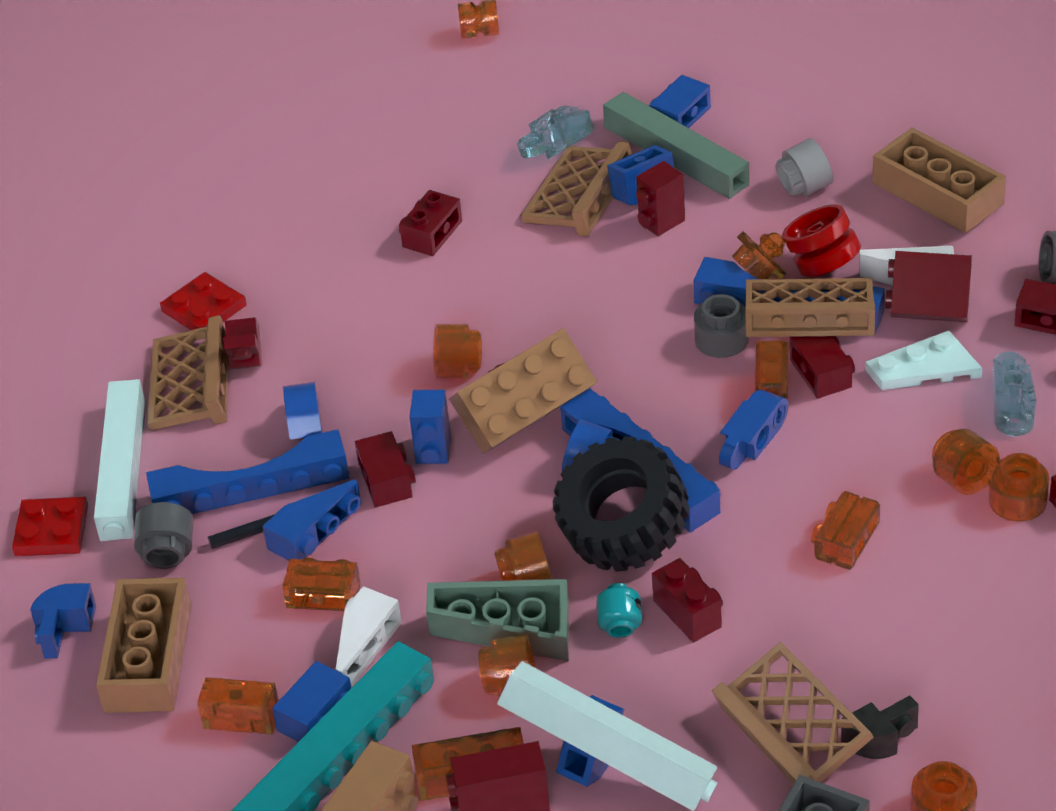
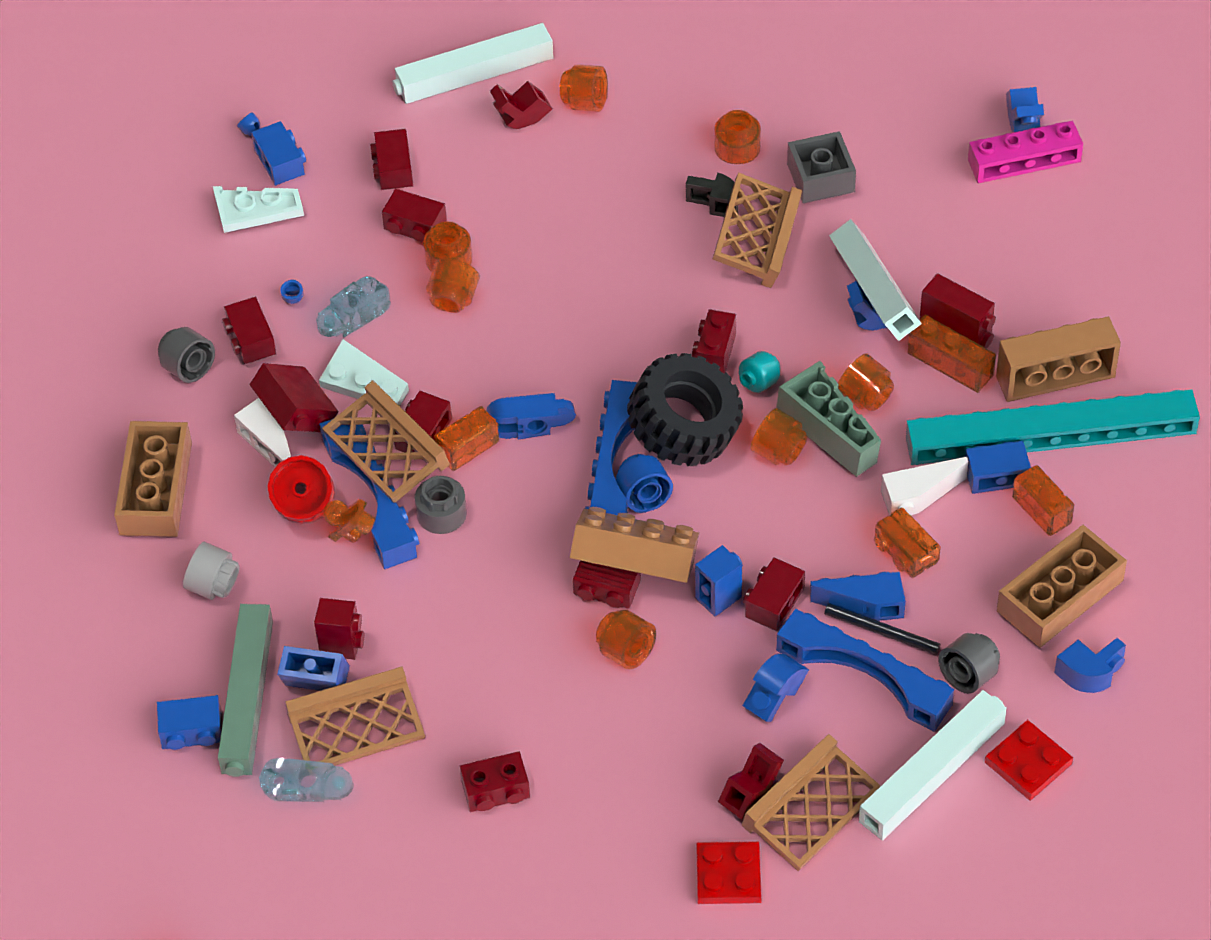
camera: 135 degrees left, 10 degrees up
(846, 529) = (571, 309): clear orange brick -> none

